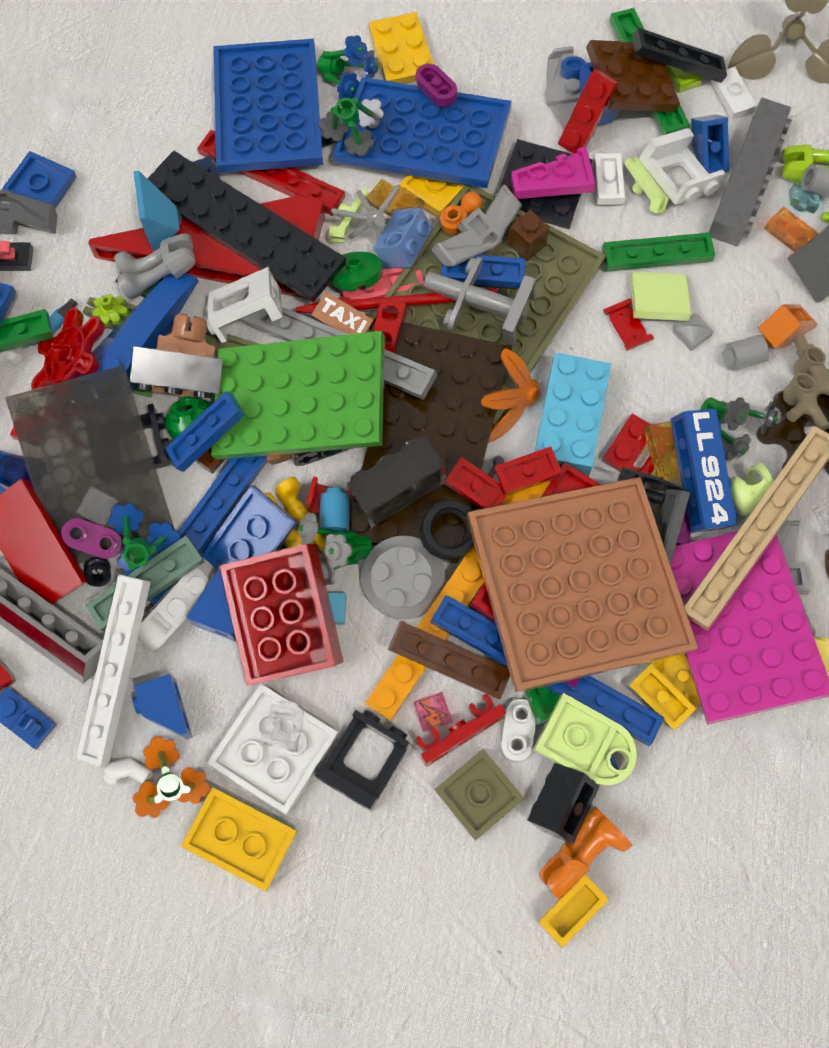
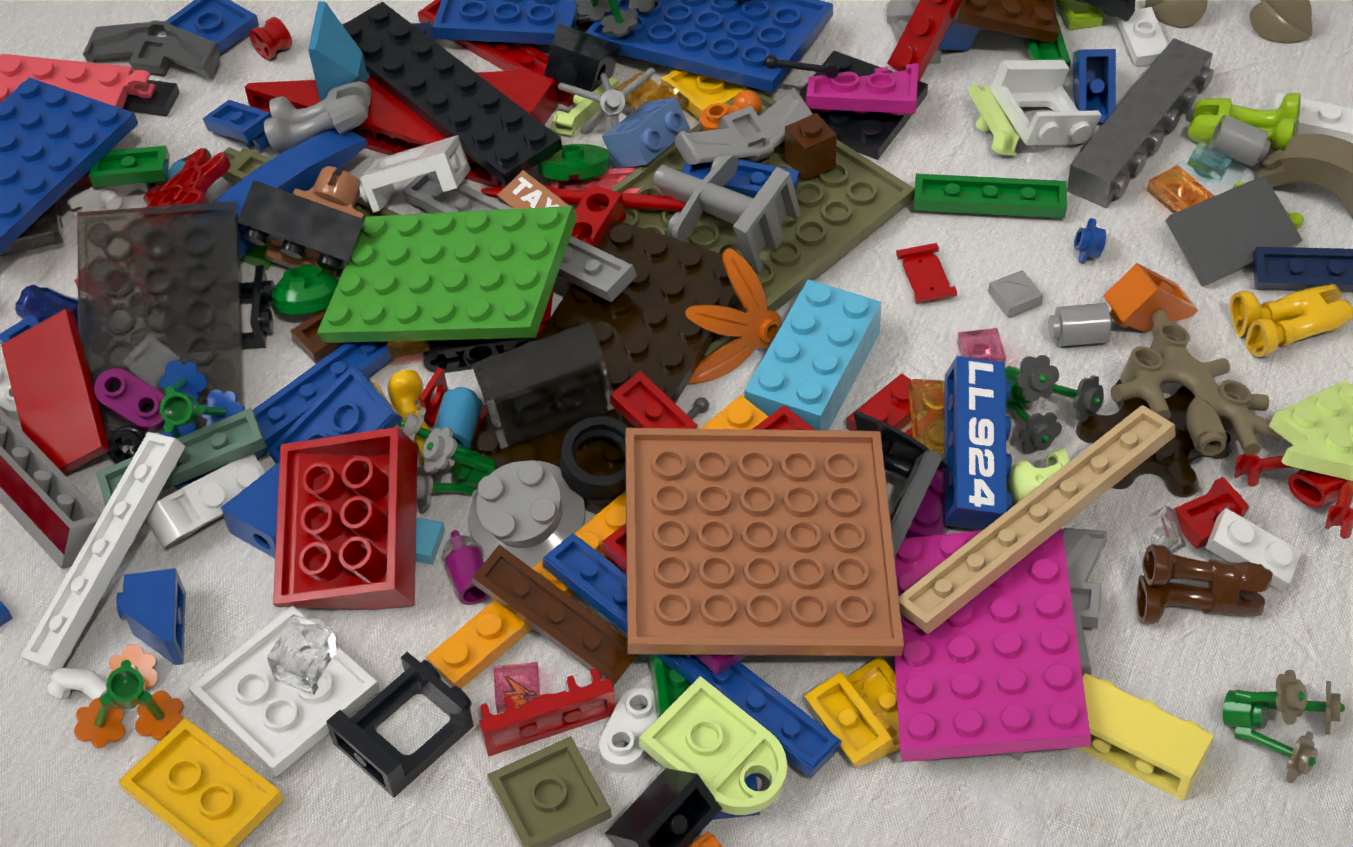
camera: 15 degrees right, 20 degrees down
(91, 190) = (270, 38): none -> red wheel
(92, 273) = (240, 123): none -> blue plate
(110, 309) = (245, 158): lime plant -> none
(205, 431) = (315, 298): blue plate -> none
(335, 178) = (580, 58): none -> black torso
(372, 626) = (462, 560): none -> magenta piece
(527, 164) = (830, 70): none -> black hinge
(528, 471) = (726, 400): red plate -> none
(609, 179) = (944, 108): white plate -> none
(660, 296) = (977, 244): yellowish green tile -> none
(682, 384) = (981, 345): none -> clear pink plate
(736, 280) = (1090, 241): none -> blue plate

